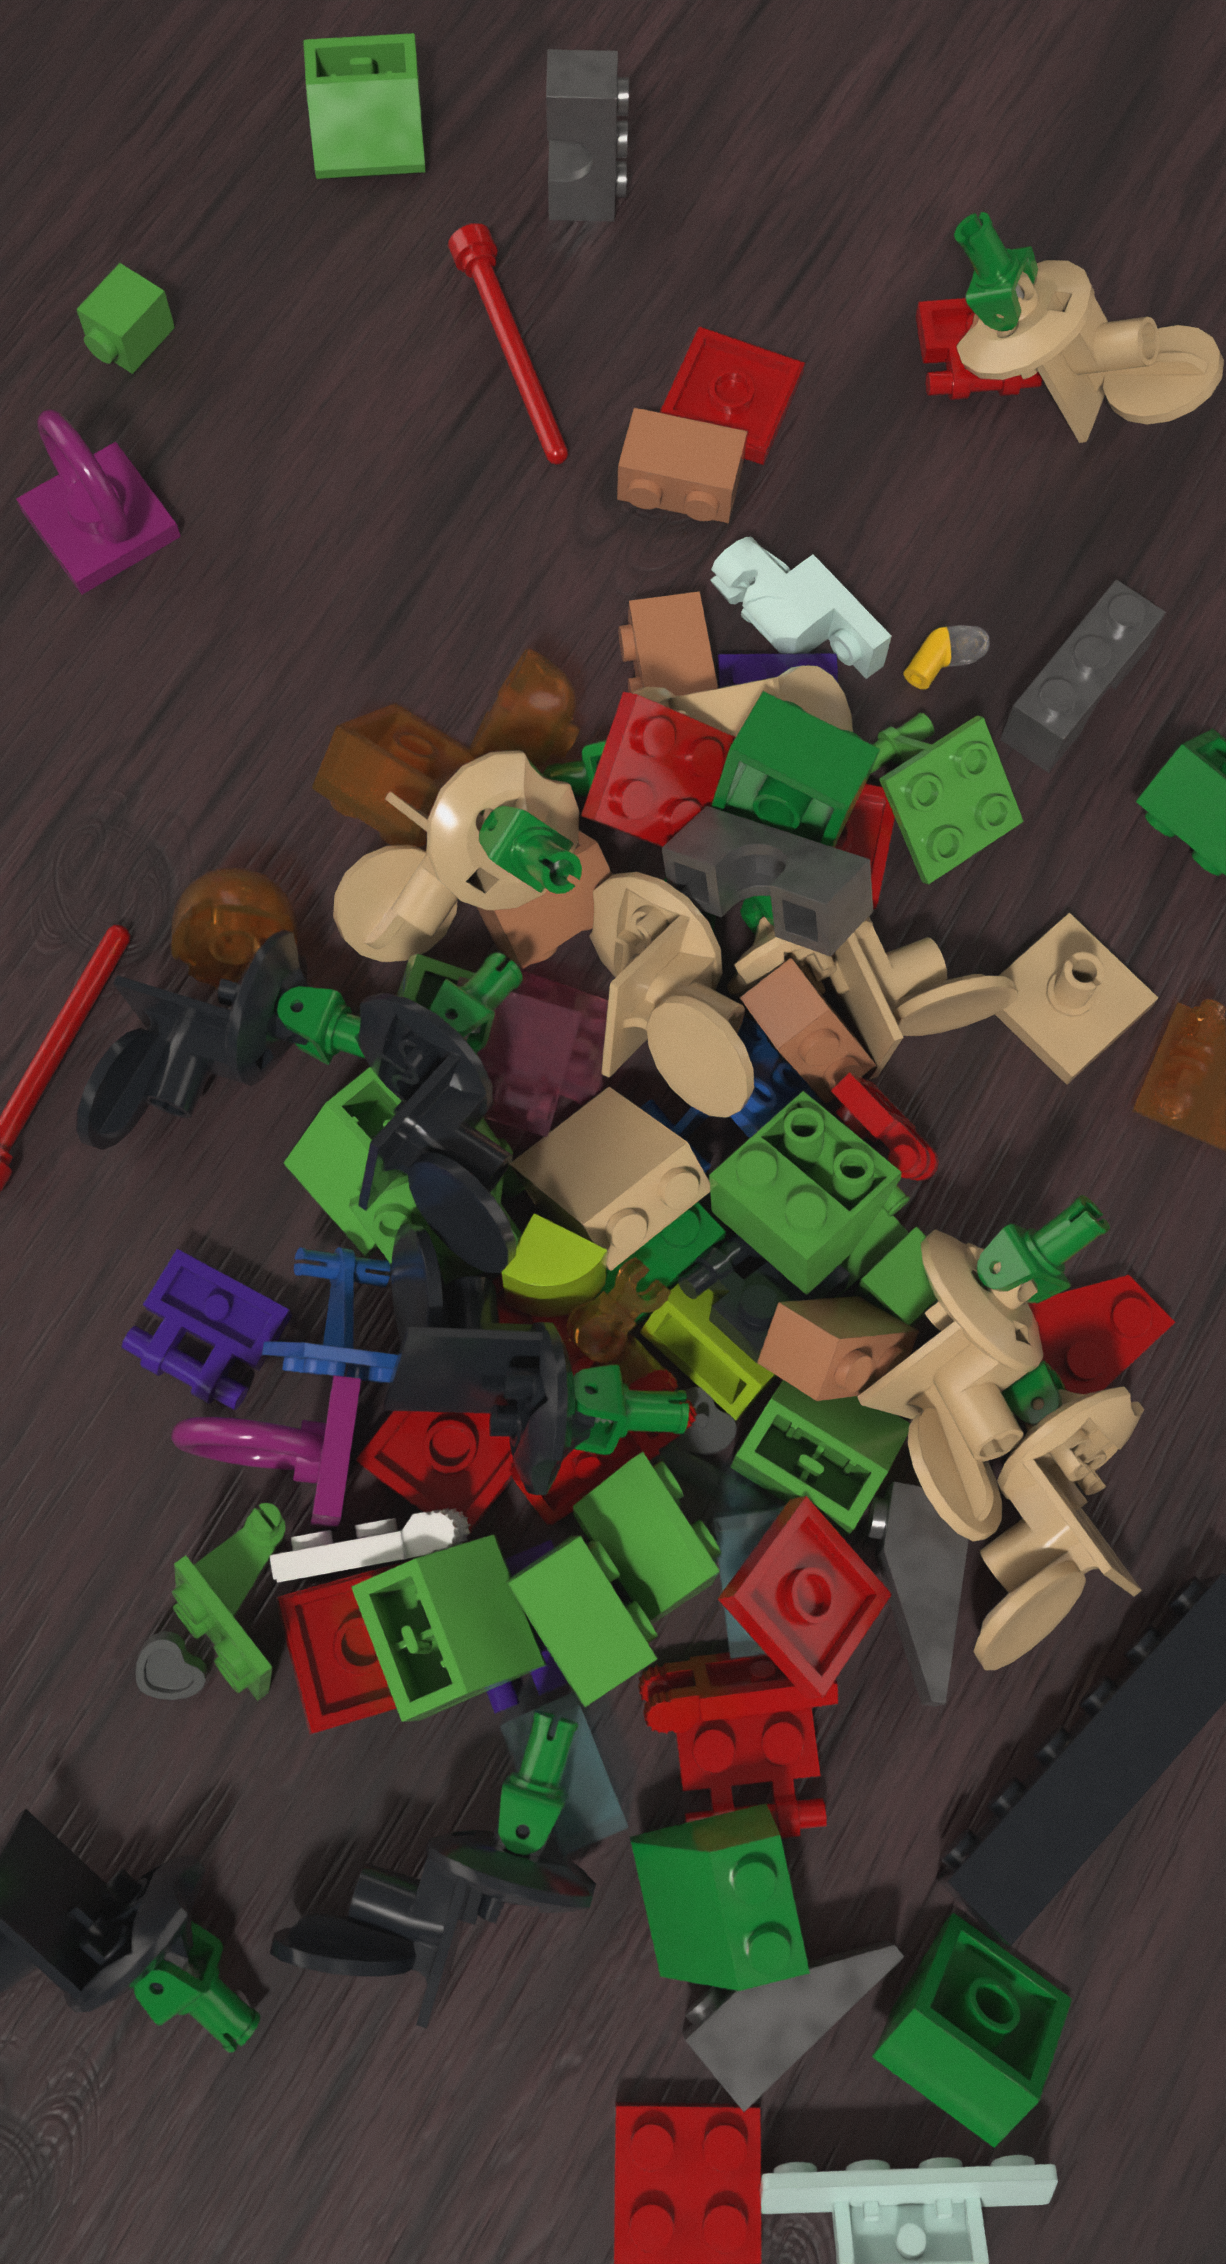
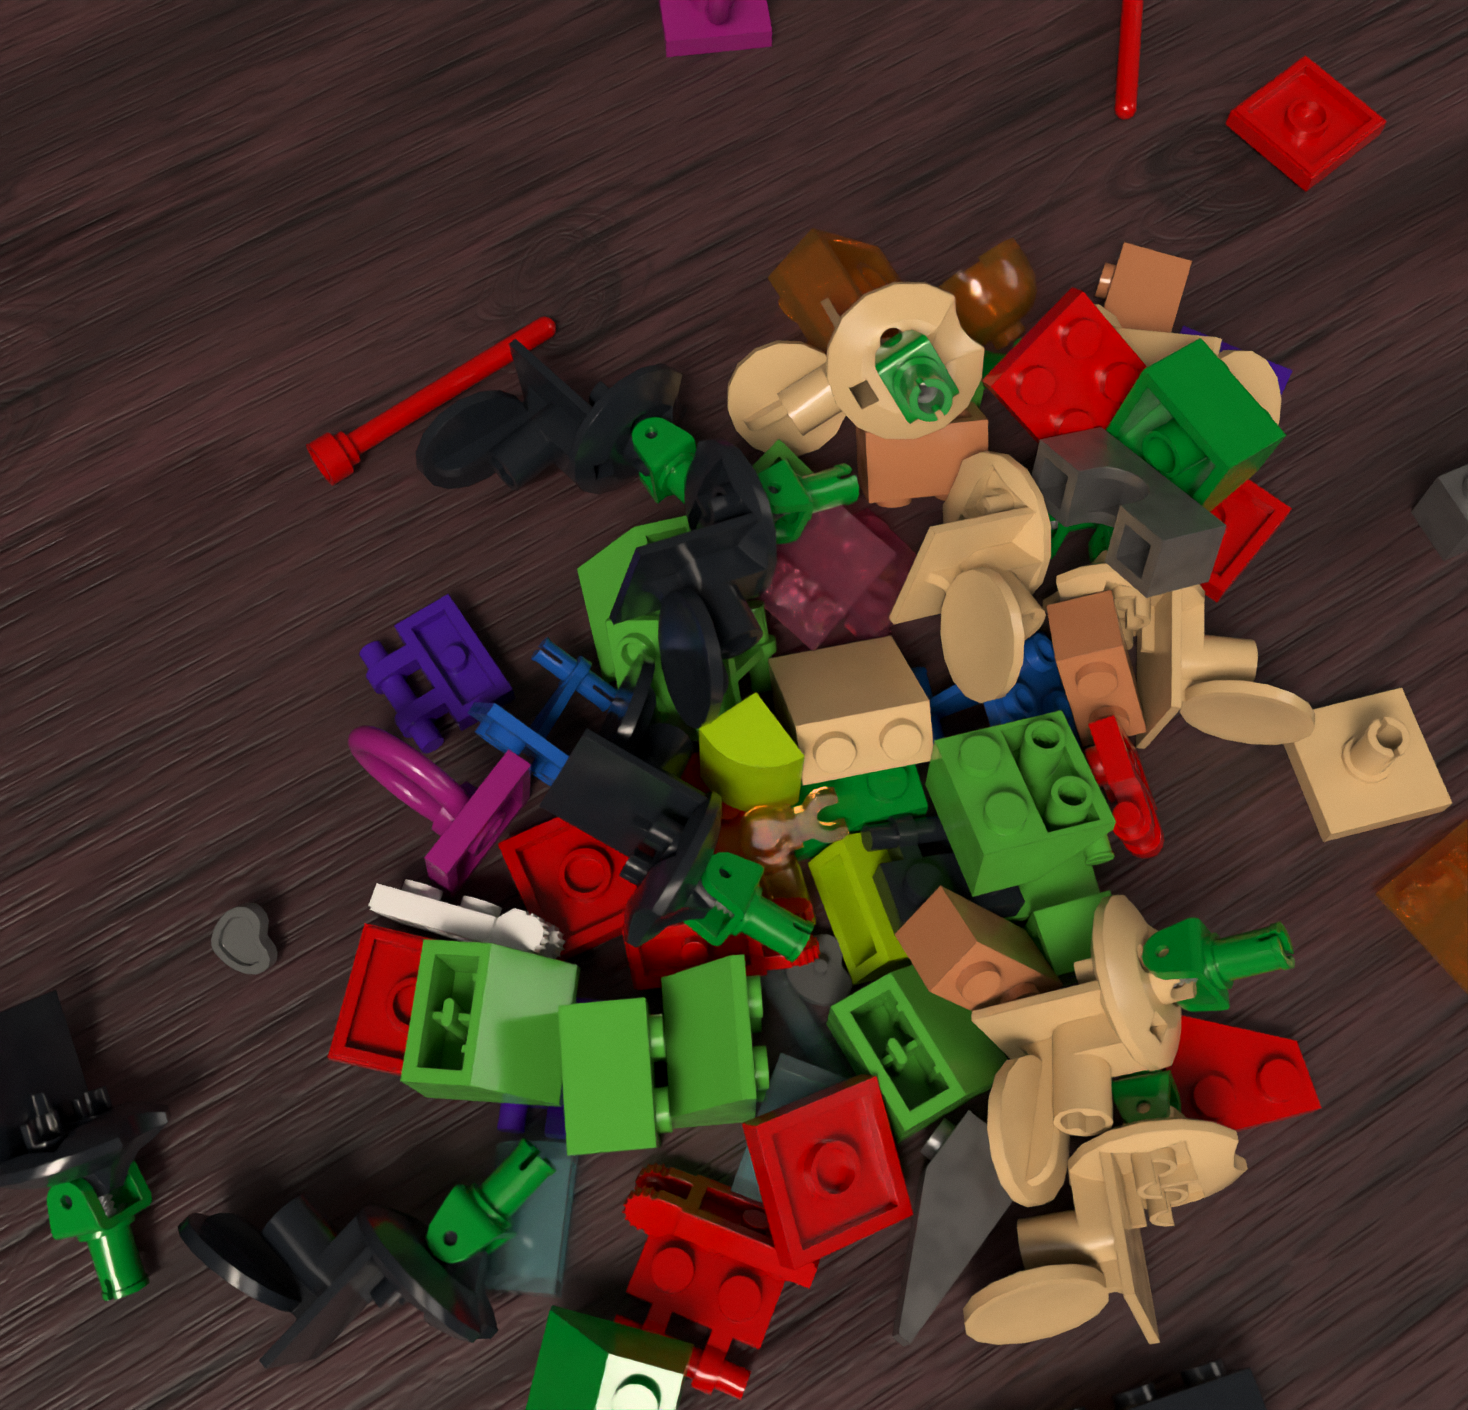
camera: 30 degrees right, 5 degrees down
(215, 1589) = (320, 886): bright green plate -> none
(226, 920) = (638, 336): clear orange cylinder -> none
(681, 465) = (1230, 159): nougat brick -> none
(800, 606) = (1279, 316): light aqua plate -> none
(946, 648) = (1399, 411): arm -> none
(947, 793) = (1333, 528): bright green plate -> none

